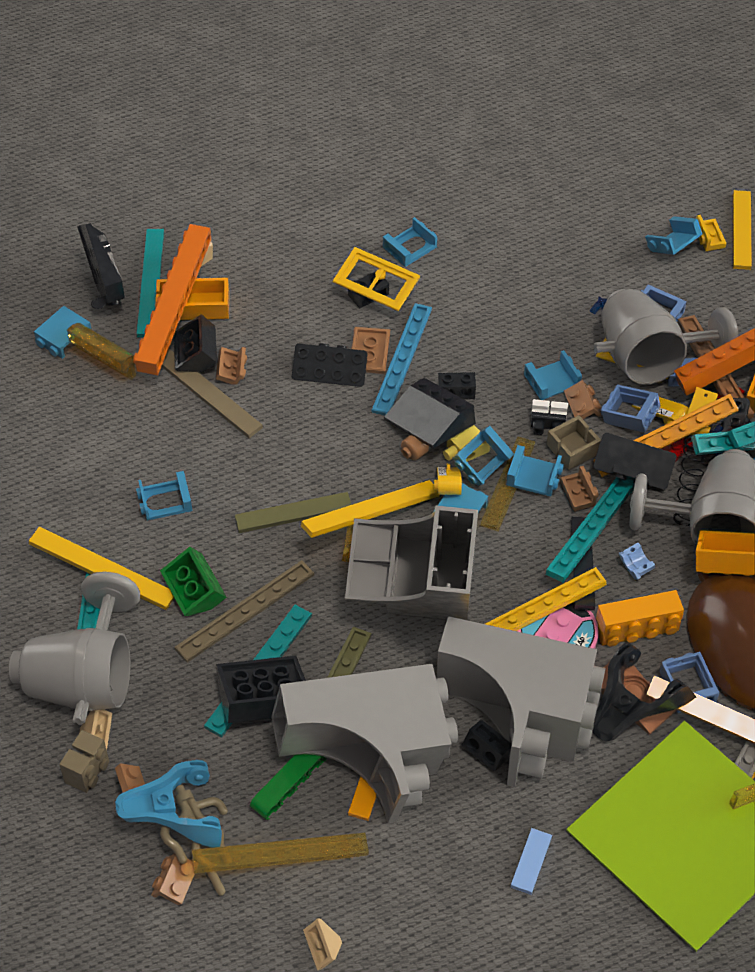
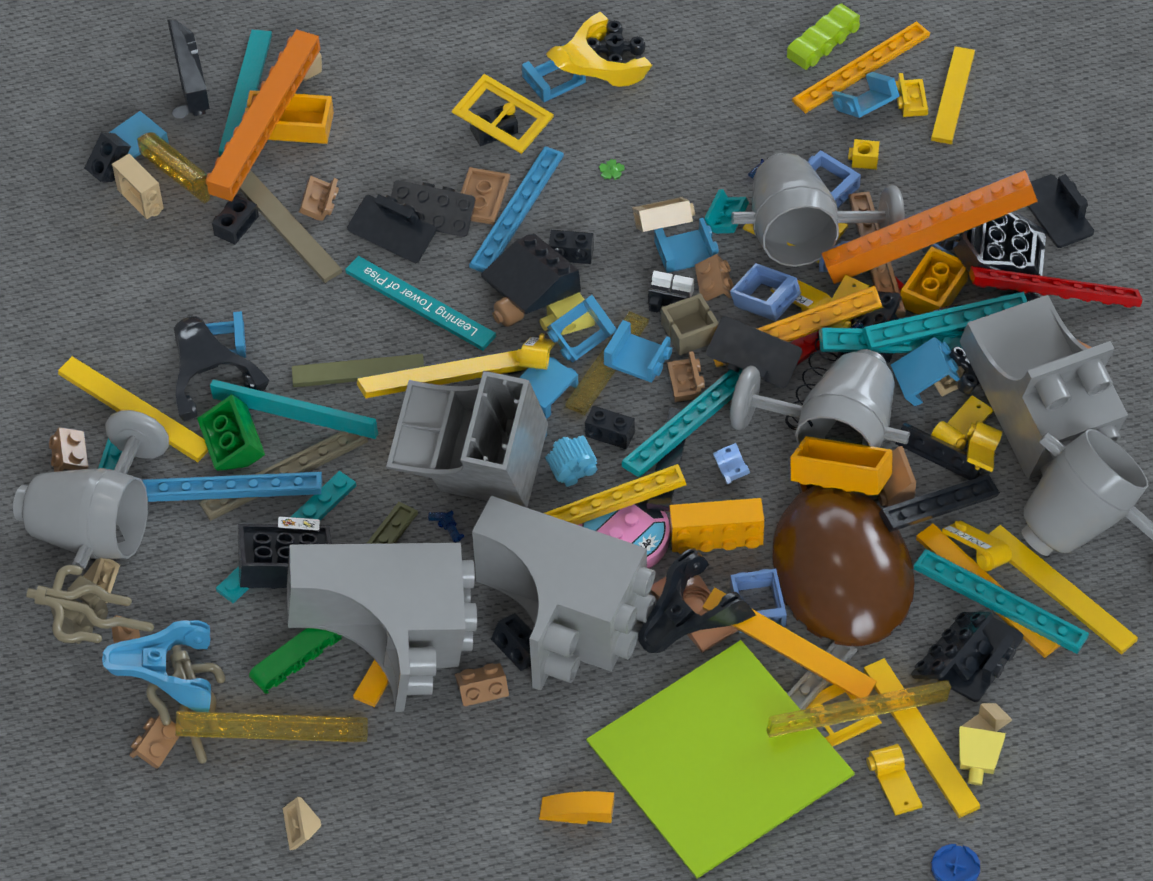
camera: 10 degrees right, 0 degrees up
(39, 351) = (106, 151): none -> black brick
(48, 612) = (68, 450): none -> medium nougat bracket
(67, 756) = (61, 600): none -> dark tan plant
(73, 370) = (138, 186): none -> tan window
(154, 511) = (201, 352): none -> black animal
(161, 391) = (235, 219): none -> black brick
(195, 345) = (282, 171): black slope -> none
(204, 629) = (233, 486): none -> dark azure tile
(247, 553) = (297, 409): none -> teal tile
(269, 657) = (298, 523): none -> white sticker
(299, 384) = (392, 227): none -> black bracket
(336, 447) = (421, 303): none -> teal tile
(399, 640) = (447, 522): none -> clear blue piece
(433, 228) = (581, 59): none -> yellow animal
(455, 215) = (615, 44): none -> black gear
(462, 788) = (482, 684): none -> medium nougat bracket
(474, 318) = (611, 169): none -> bright green plant
(499, 573) = (571, 460): none -> medium azure brick
(524, 540) = (609, 427): none -> black brick
(530, 350) = (663, 214): none -> tan window
(531, 861) = (541, 767): light blue tile -> none
(574, 896) = (578, 807): none -> light orange slope
(580, 344) = (720, 212): none -> teal bracket
(625, 192) = (823, 36): none -> lime brick
(661, 214) = (861, 67): none -> light orange tile
(683, 285) = (864, 154): none -> yellow brick

